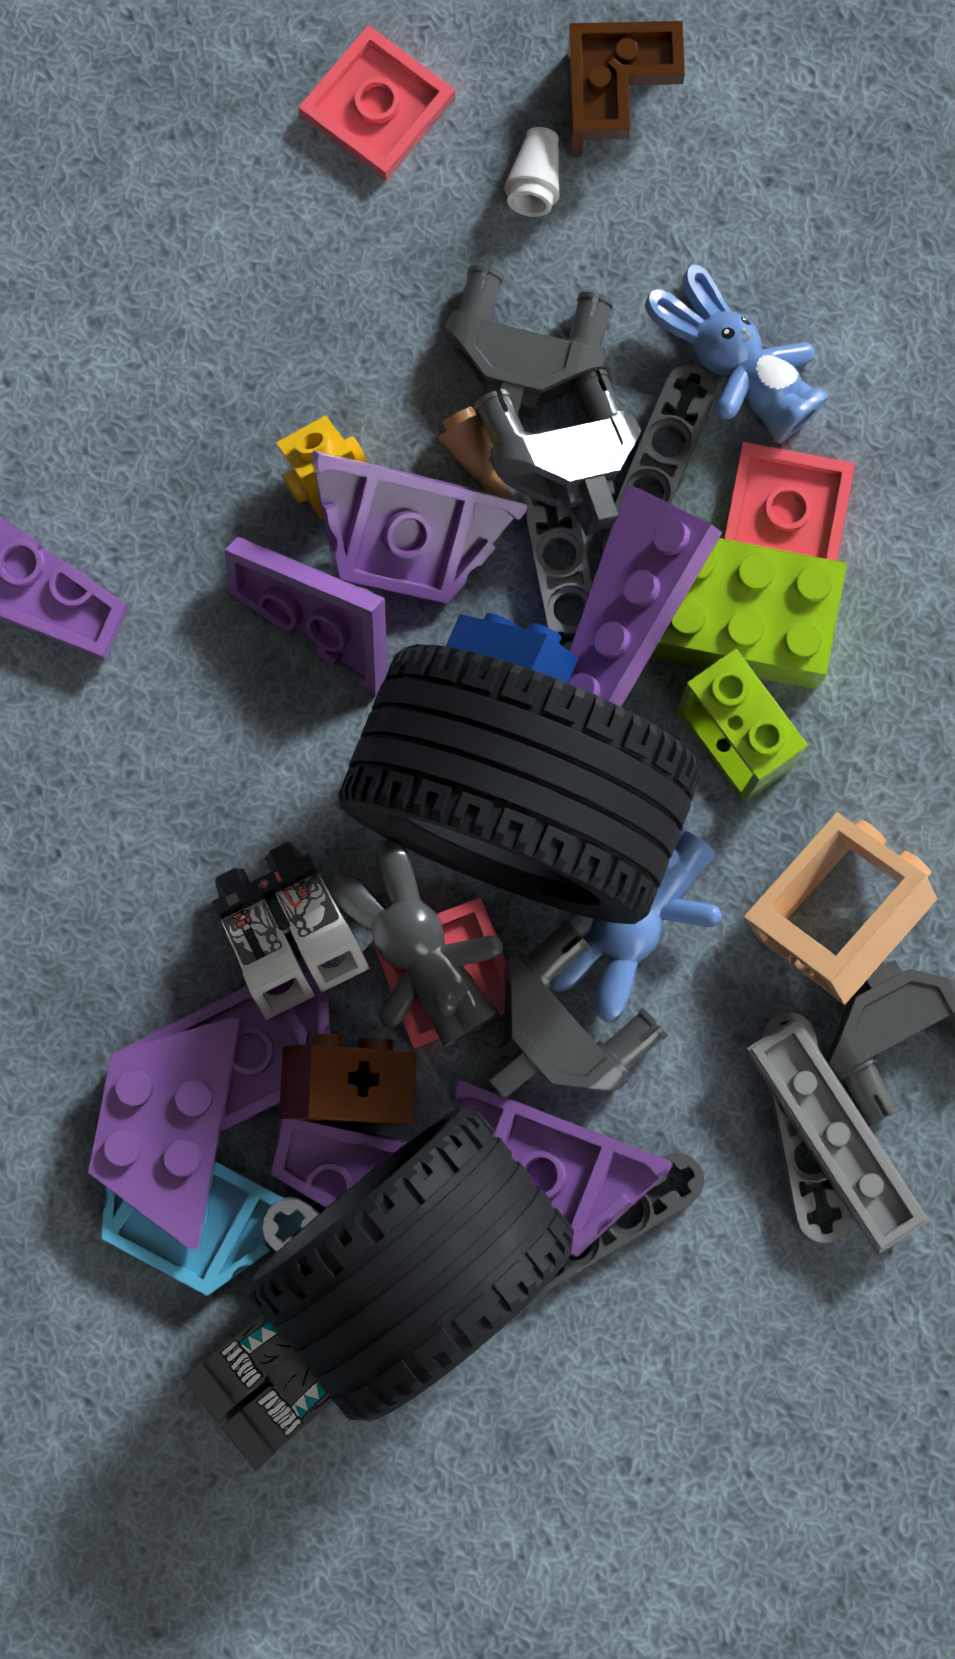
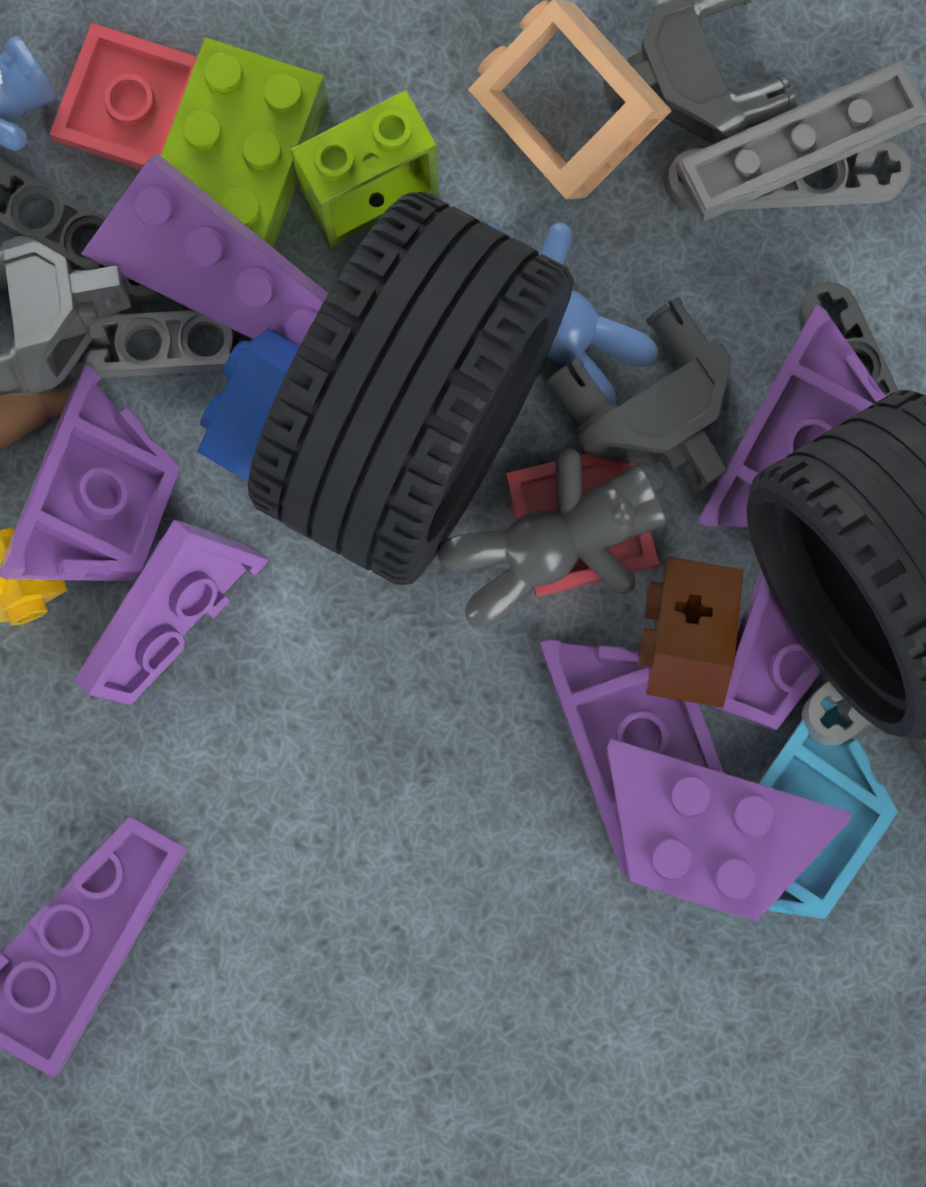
camera: 80 degrees left, 0 degrees up
(276, 910) = (495, 683): hips -> none

